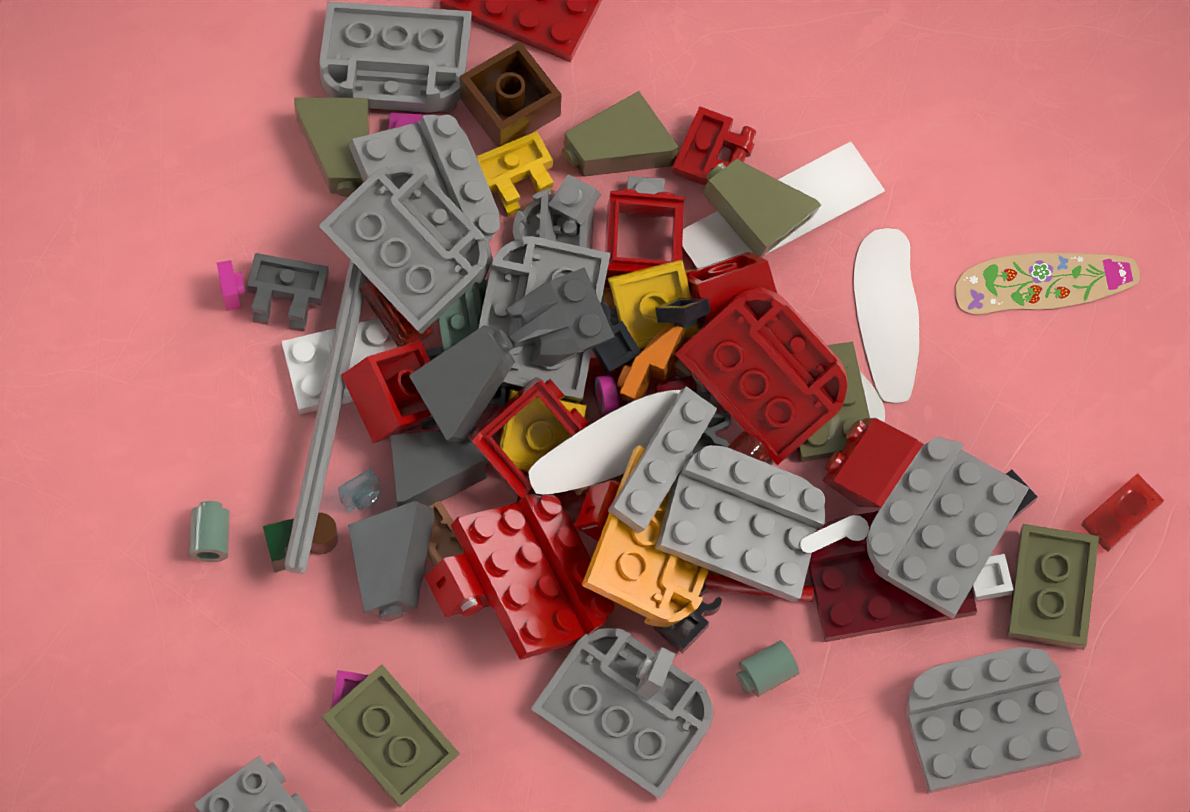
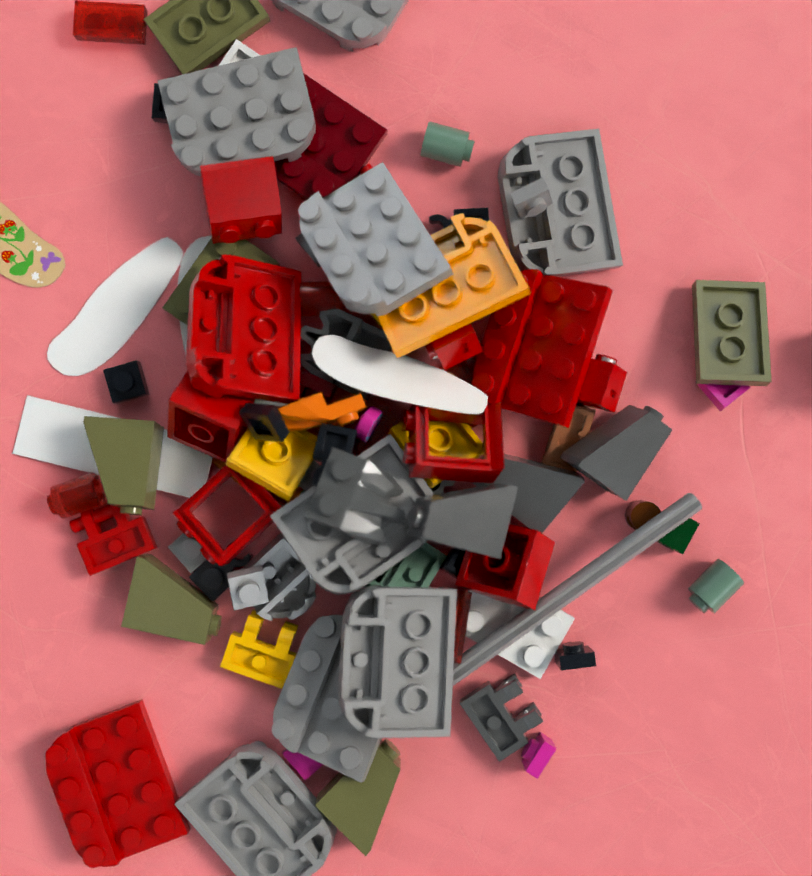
camera: 130 degrees left, 20 degrees up
(271, 380) = (575, 656): none -> black plate
(359, 491) = (591, 518): clear light blue plate -> none
(510, 95) = (212, 711): reddish brown brick -> none
(604, 183) = (213, 578): none -> black plate
(662, 460) = (388, 327): light grey plate -> none
(770, 149) = (76, 496): none -> clear red brick
(822, 266) = (126, 382): none -> black plate
(853, 527) = (300, 173): white sticker -> none

